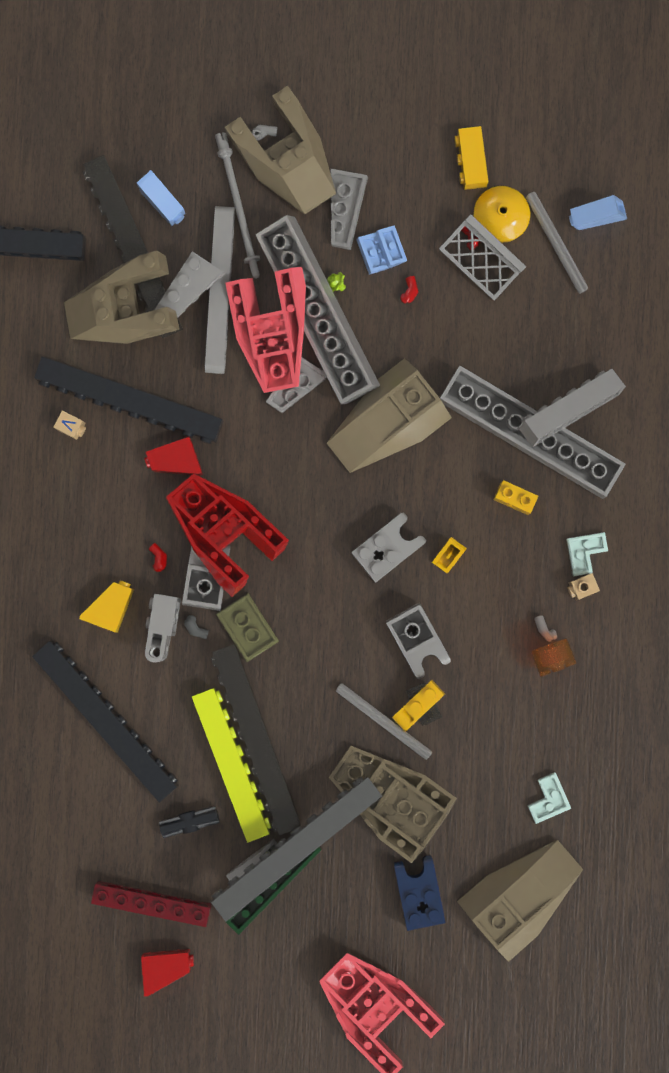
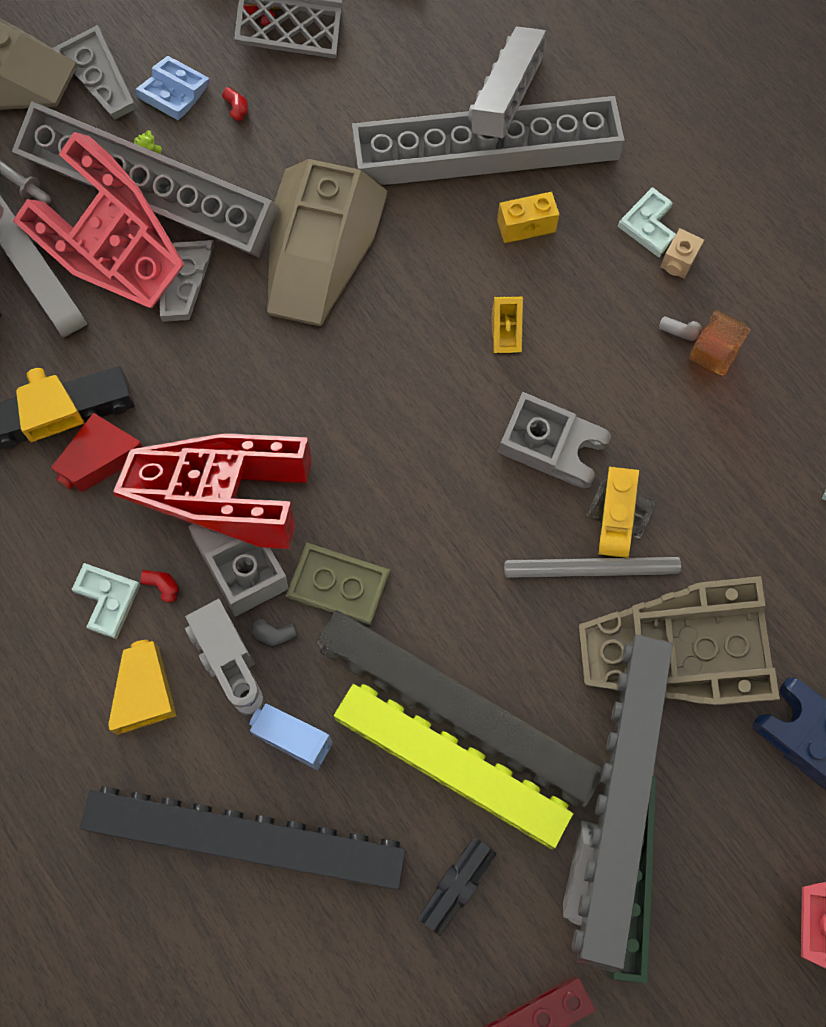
camera: 40 degrees left, 15 degrees down
(130, 544) = (113, 595): none -> light aqua tile
(163, 689) = (291, 736): none -> light blue slope
(166, 416) = (45, 406): none -> yellow torso
(392, 546) = (434, 365): light grey brick -> none

